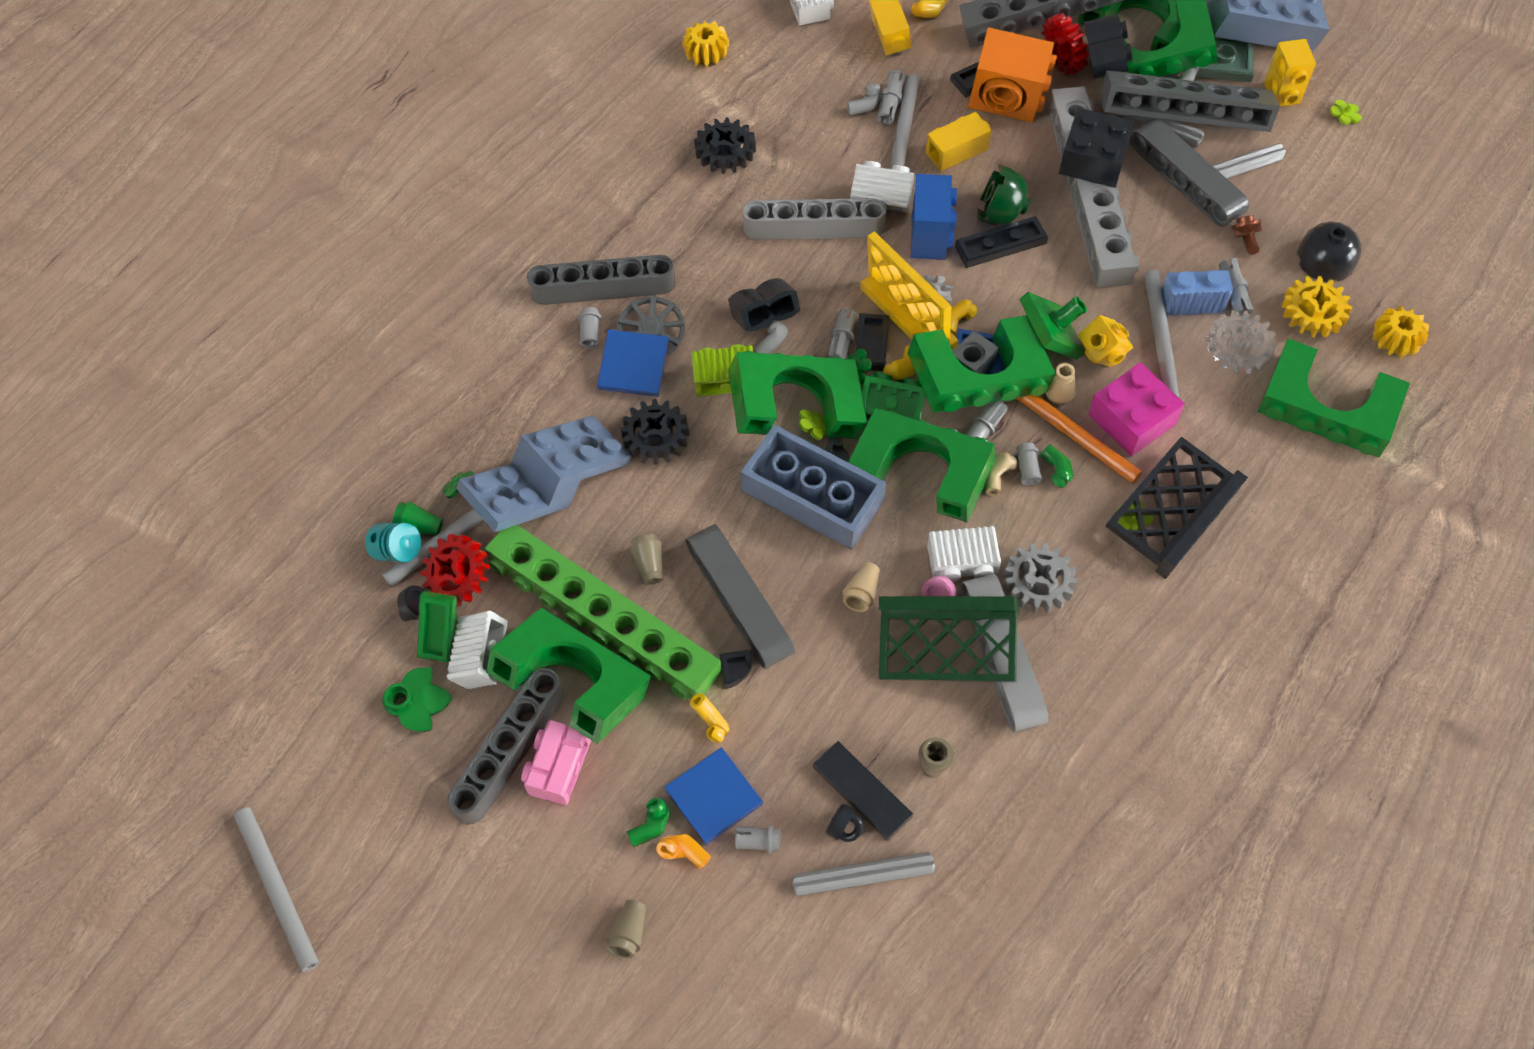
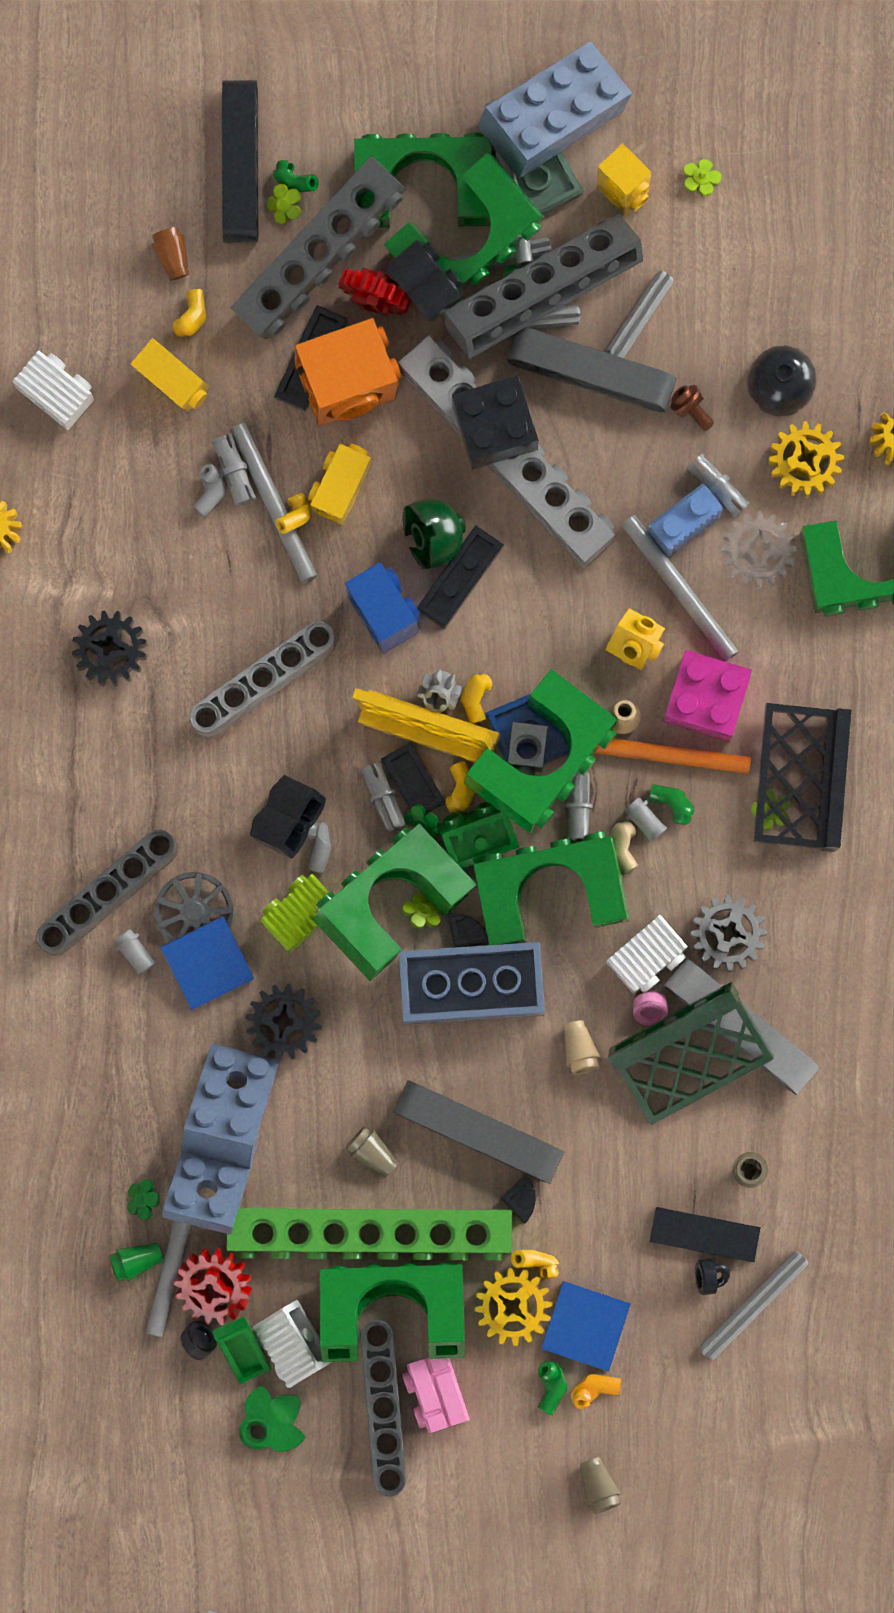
camera: 30 degrees left, 20 degrees up
(393, 542) = (140, 1298): teal piece -> none
(650, 738) = (503, 1319): none -> yellow gear
(758, 838) = (649, 1337): light grey pin -> none
(888, 185) = (307, 598): white brick -> none
(913, 141) = (297, 516): none -> yellow arm
(1054, 322) = (577, 655): green tile -> none

